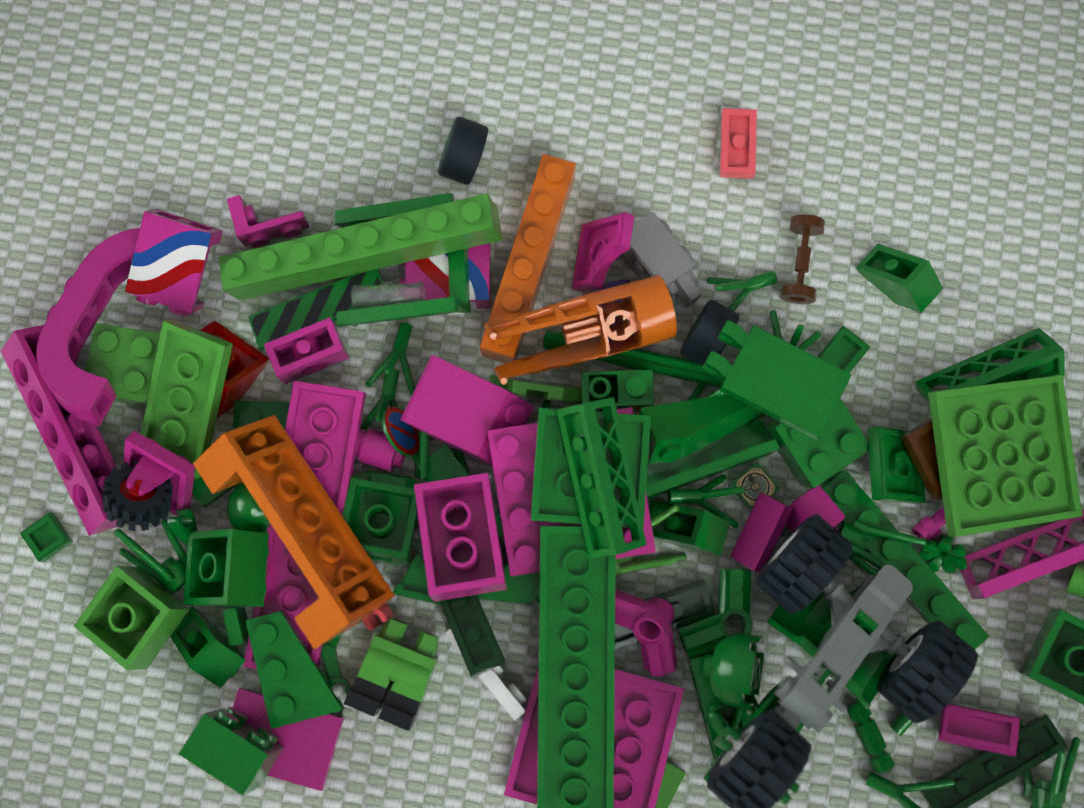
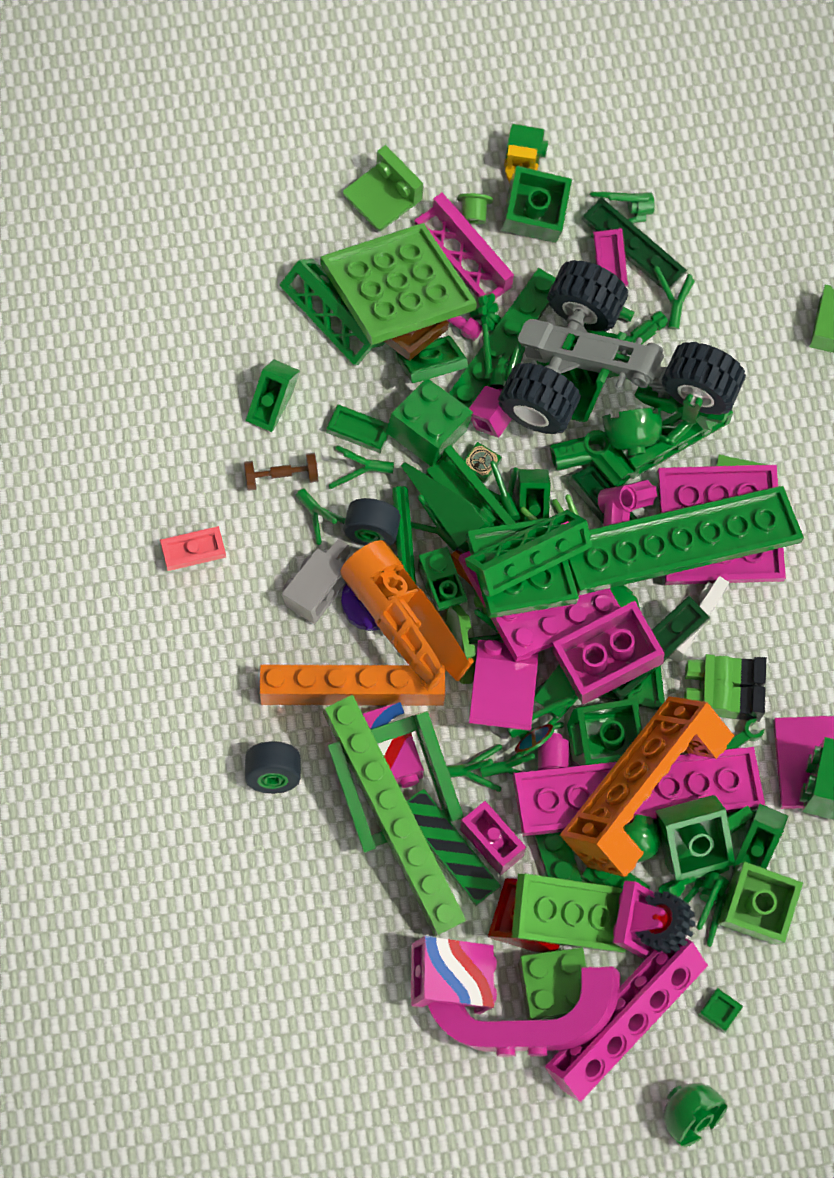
camera: 115 degrees left, 10 degrees down
(258, 235) = (392, 936): dark pink bracket -> none
(287, 674) = (757, 765): green wing -> none
(387, 293) = (424, 781): clear pin -> none
(599, 247) = (325, 629): dark pink tile -> none
(761, 532) = (518, 444): dark pink tile -> none
(778, 379) = (400, 452): green tile -> none

